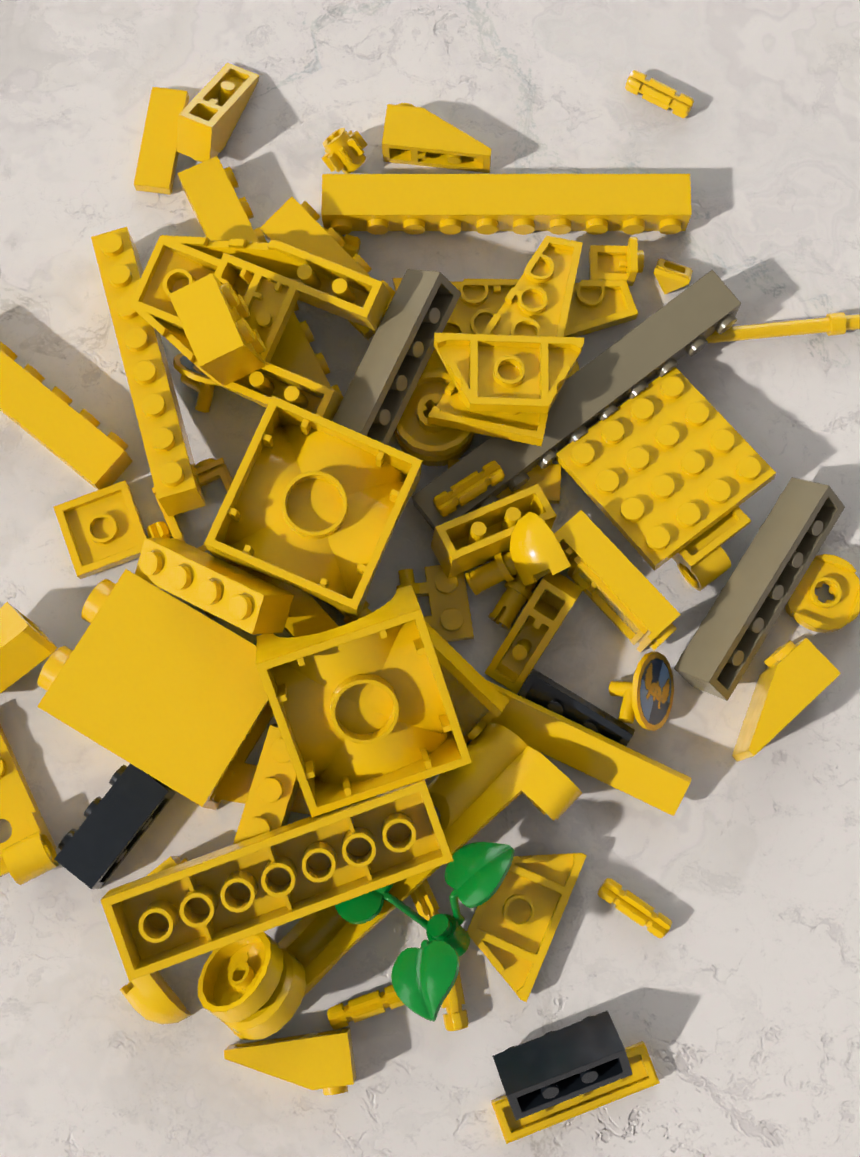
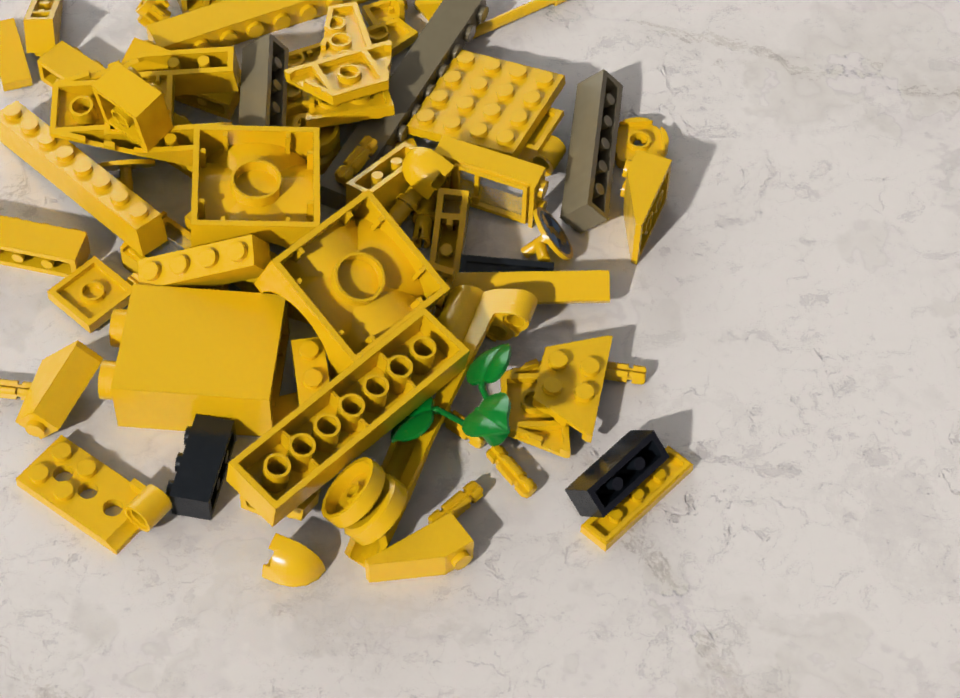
camera: 30 degrees left, 25 degrees down
(573, 915) = (573, 382): none -> yellow wing

